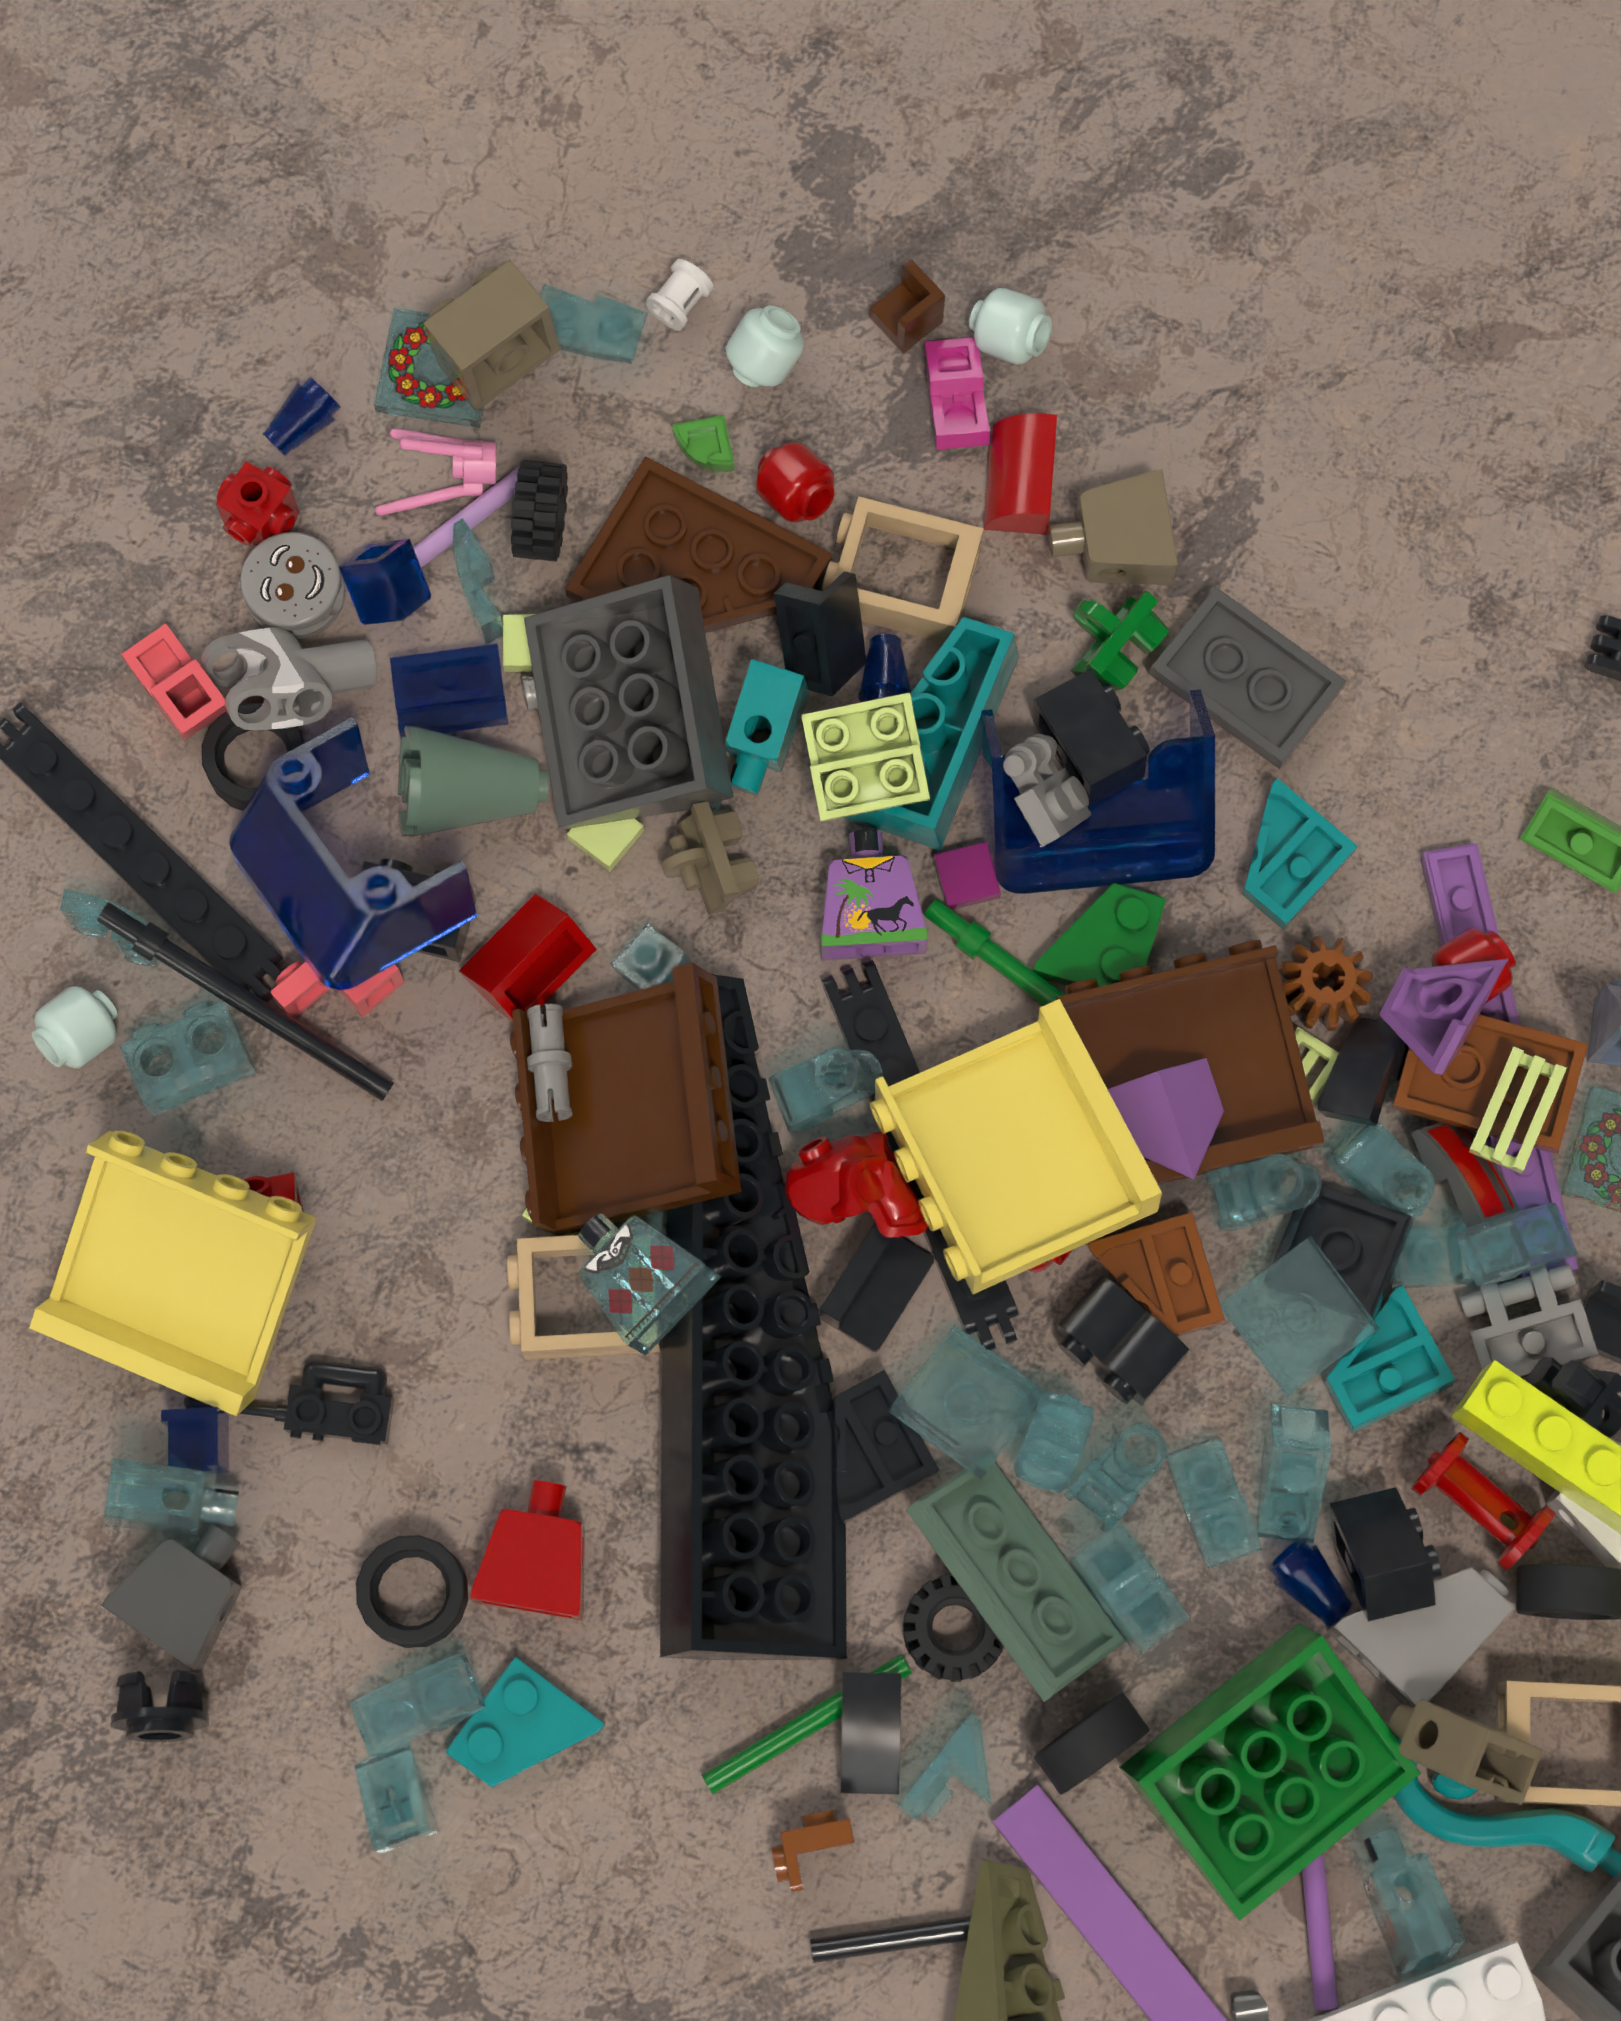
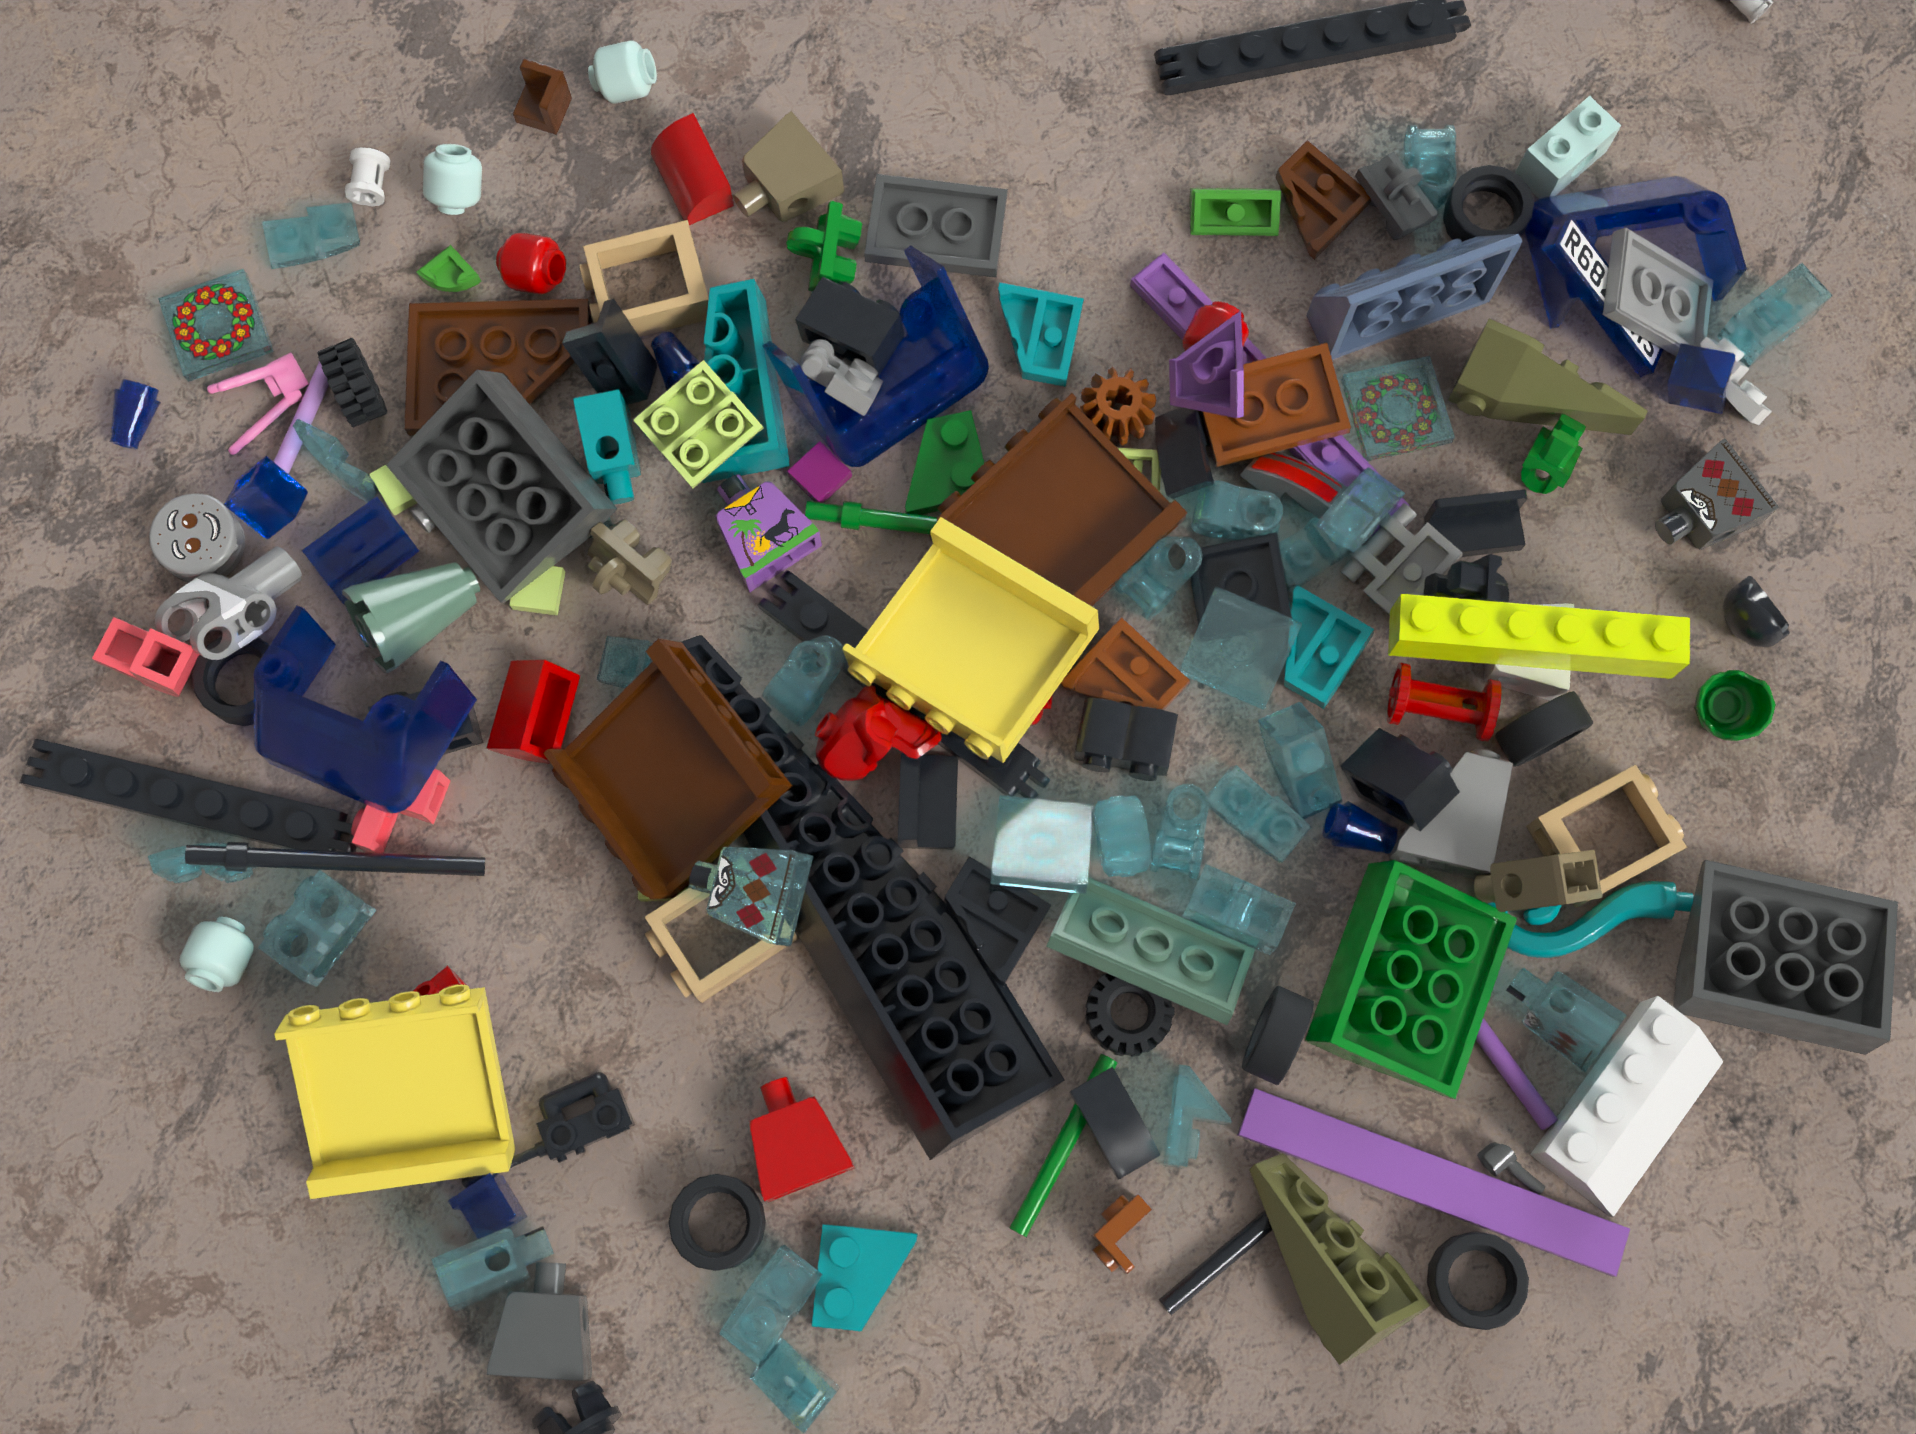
camera: 30 degrees left, 0 degrees up
(256, 504) = (134, 493): red brick -> none
(492, 334) = (241, 272): dark tan brick -> none
(549, 1062) = (593, 775): light grey pin -> none
(956, 393) = (611, 140): dark pink slope -> none
(1172, 1114) = (1069, 554): medium lavender slope -> none
(1535, 1066) = (1302, 378): yellowish green tile -> none

